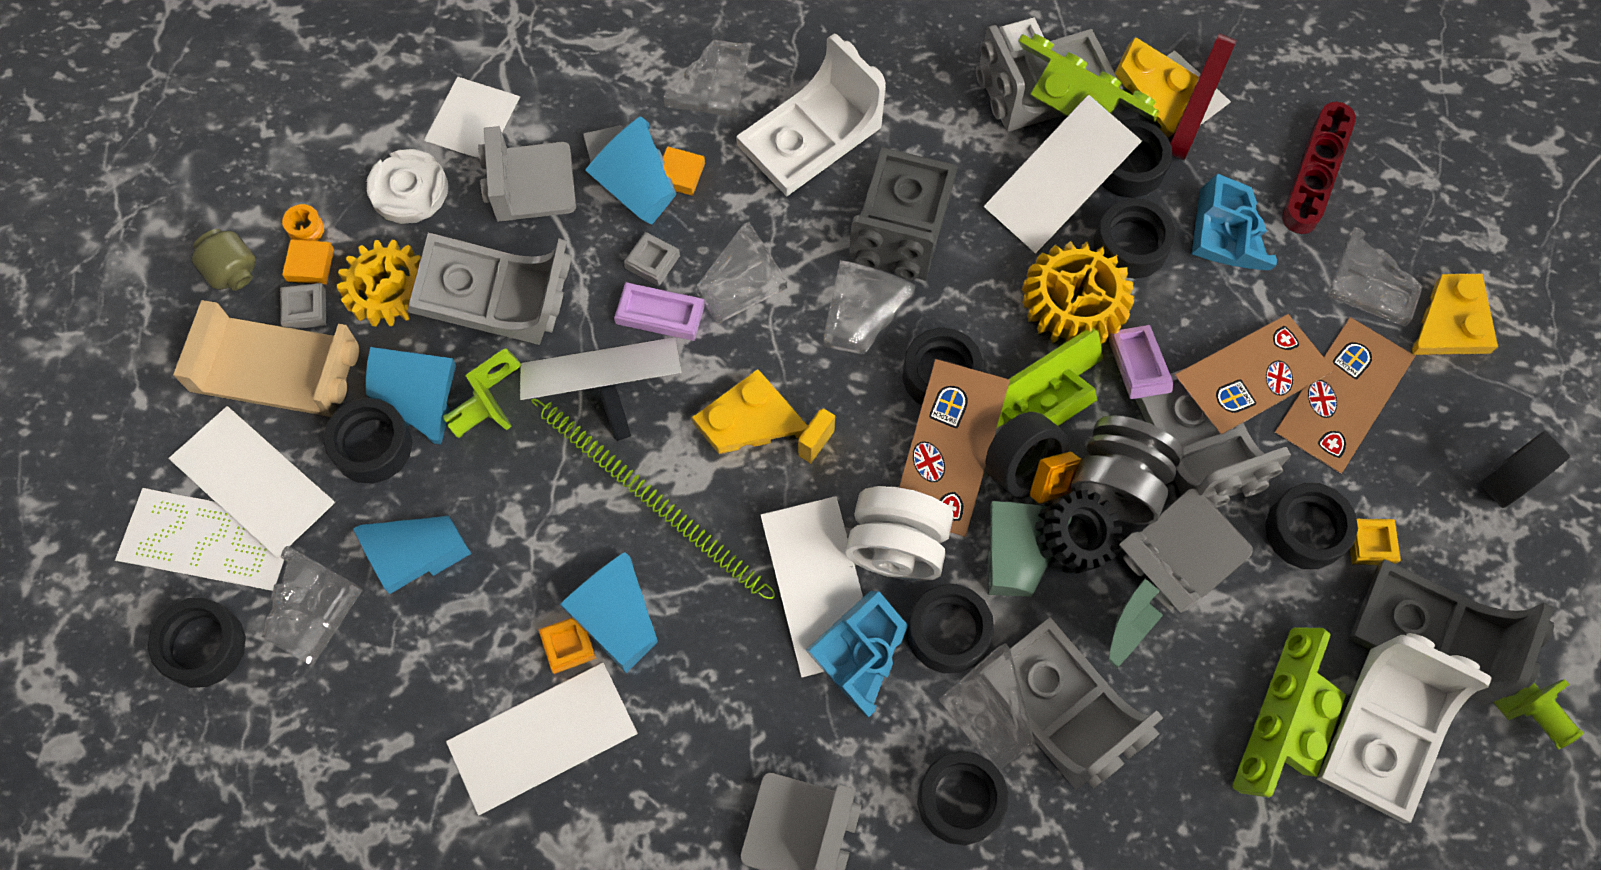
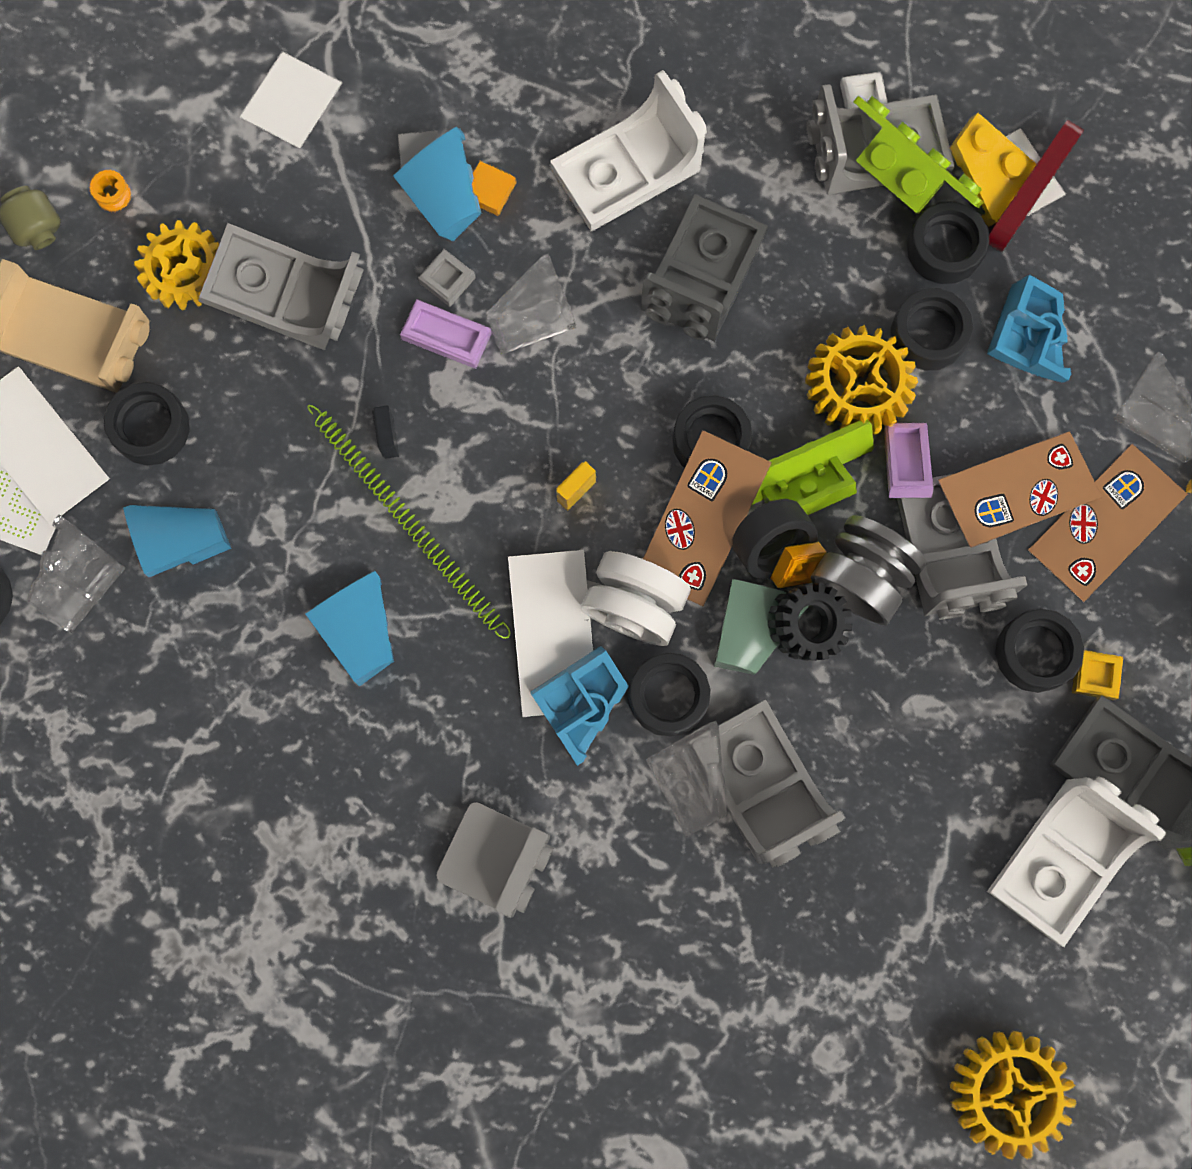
camera: 10 degrees right, 10 degrees up
(303, 306) = (101, 276): light grey tile -> none
(308, 261) = (111, 230): light orange tile -> none
(407, 186) = (217, 164): white tile -> none
(414, 386) = (196, 376): dark azure slope -> none
(482, 403) = (261, 401): lime bracket -> none
(526, 178) = (334, 174): light grey bracket -> none
(541, 738) = (272, 734): white sticker -> none
(566, 645) = (307, 652): light orange tile -> none
(599, 368) = (377, 385): white sticker -> none
(714, 81) = (538, 95): clear wing -> none
(748, 416) = (514, 454): yellow wing -> none
(862, 306) = (645, 359): clear slope -> none
(989, 775) = (682, 850): black tyre -> none
(1062, 173) = (872, 250): white sticker -> none
(1134, 622) = (839, 723): sand green slope -> none
(1187, 551) = (909, 658): light grey bracket -> none
(1294, 717) = (979, 830): lime bracket -> none
(1320, 167) = (1139, 280): dark red beam -> none

